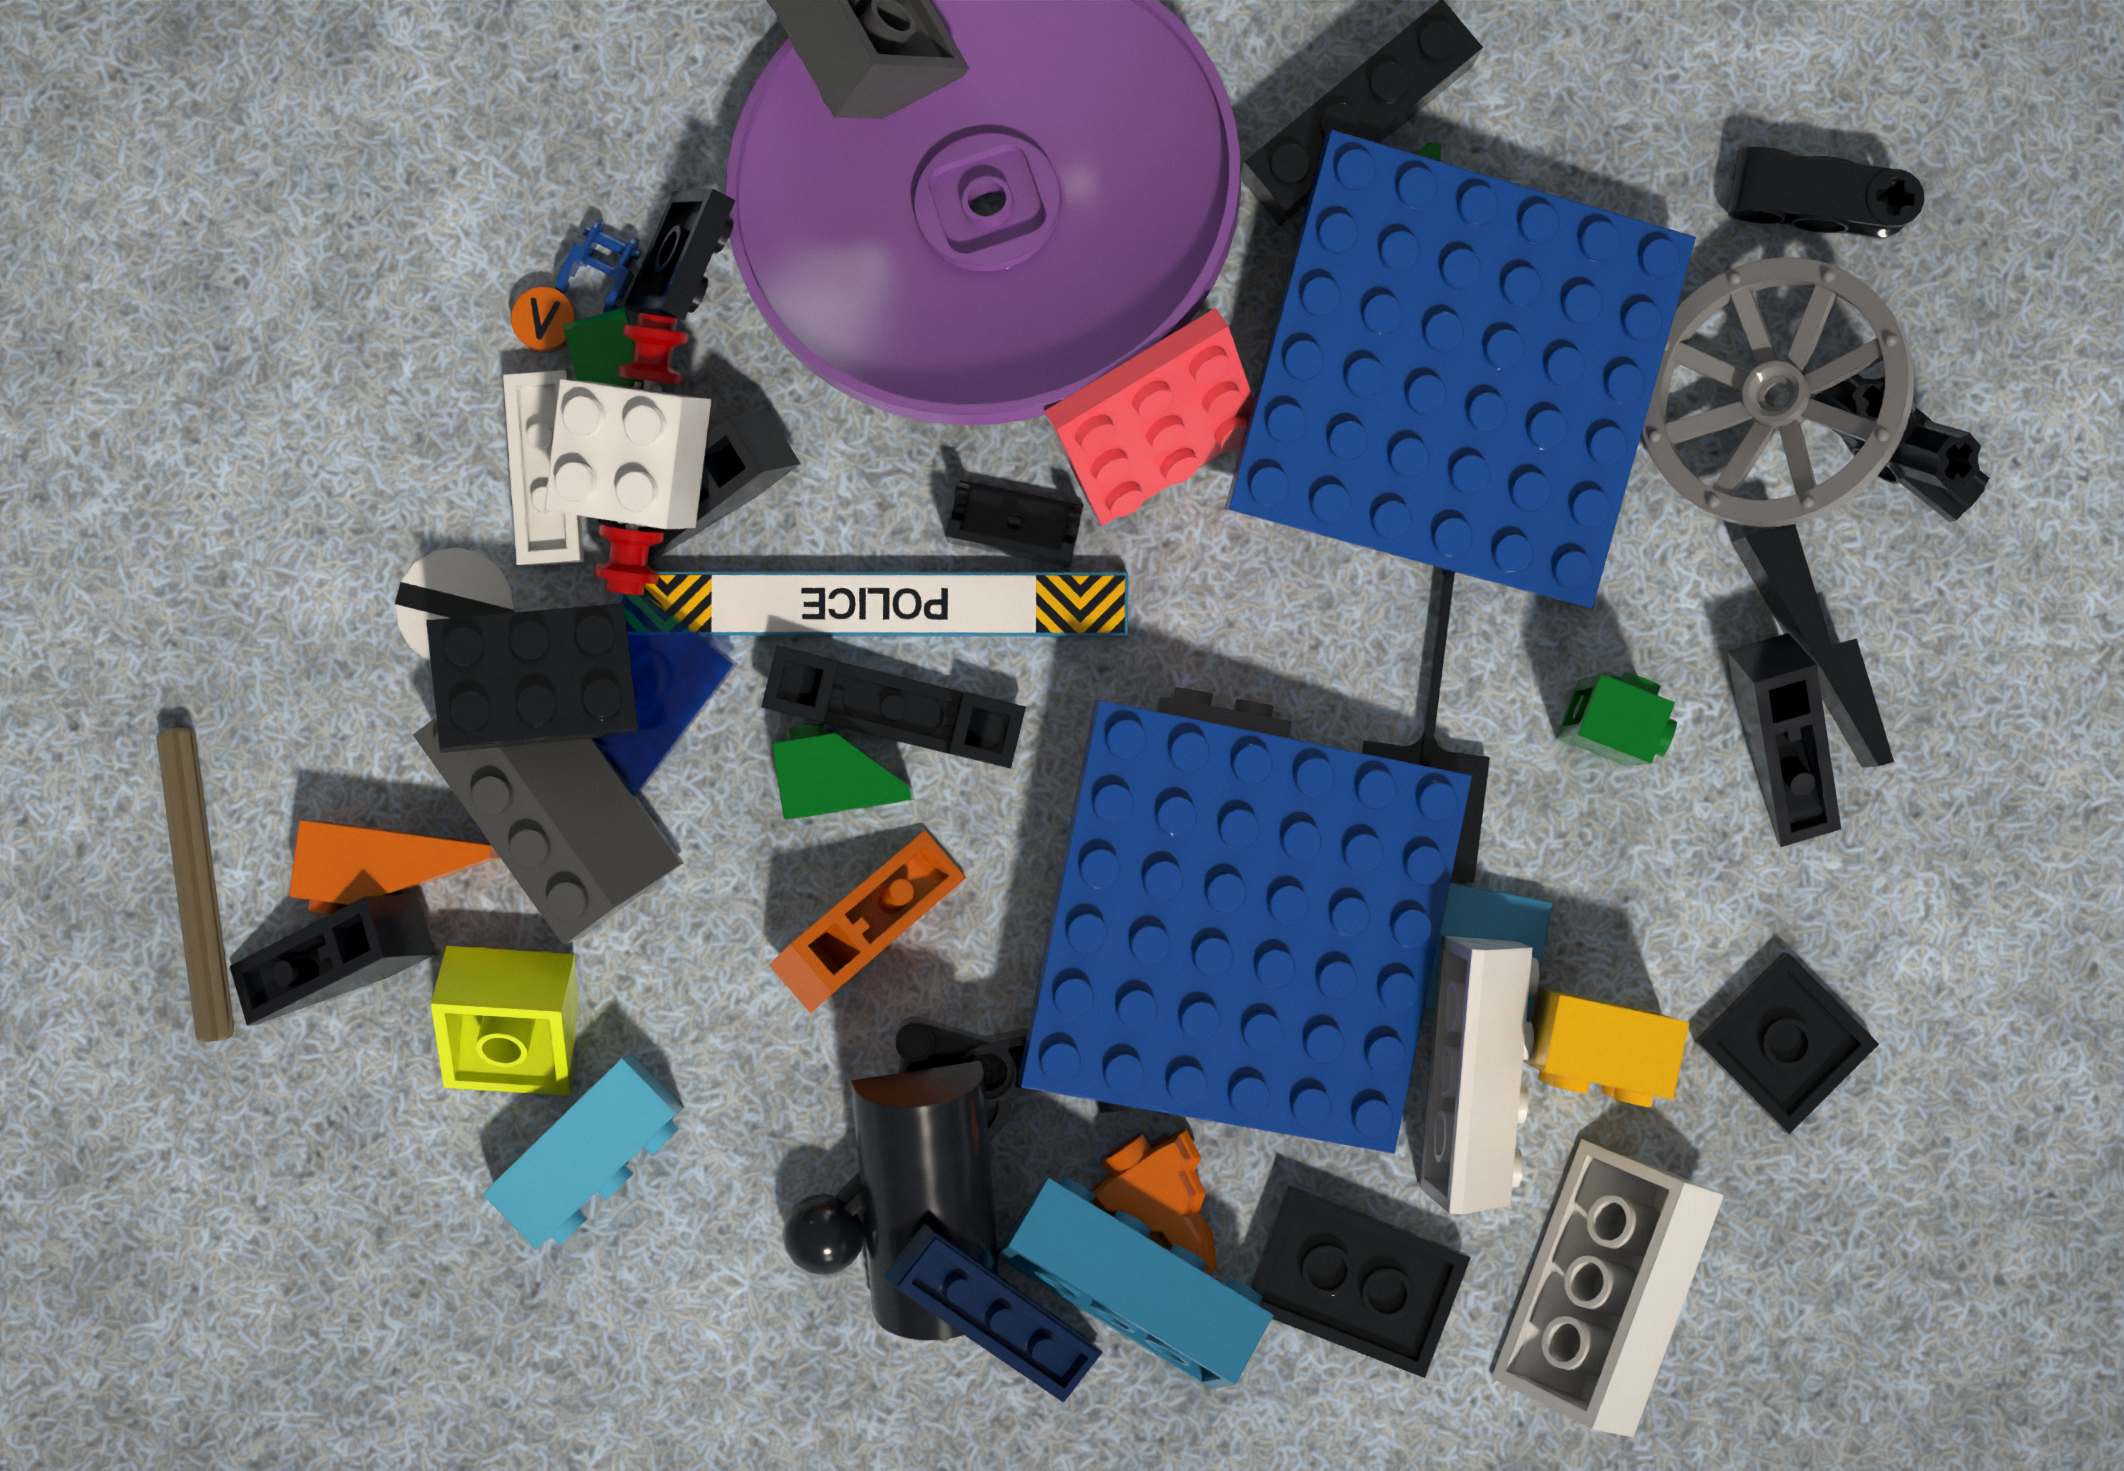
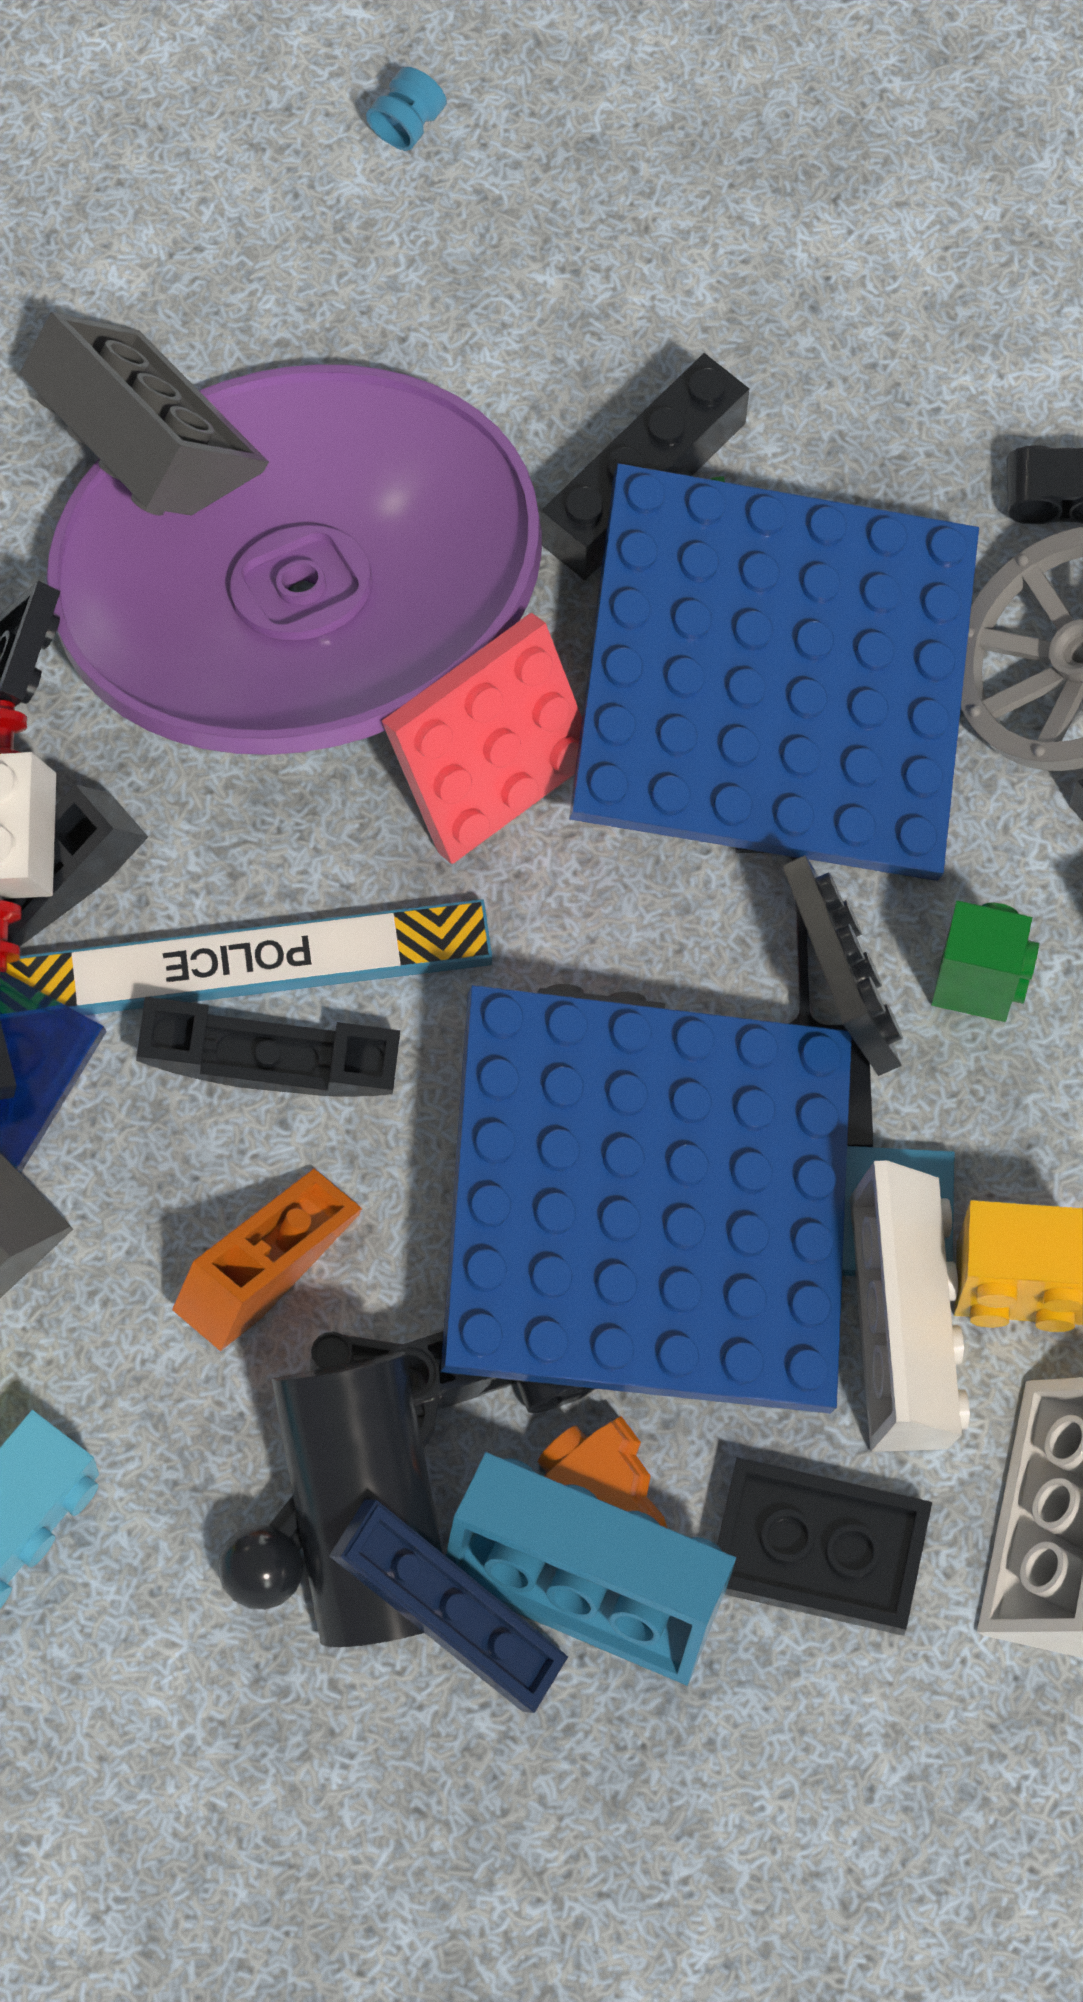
camera: 10 degrees left, 20 degrees down
(831, 775) = (218, 1122): green slope -> none
(1014, 523) = (365, 872): black hinge -> none
(1476, 711) = (845, 966): none -> black plate

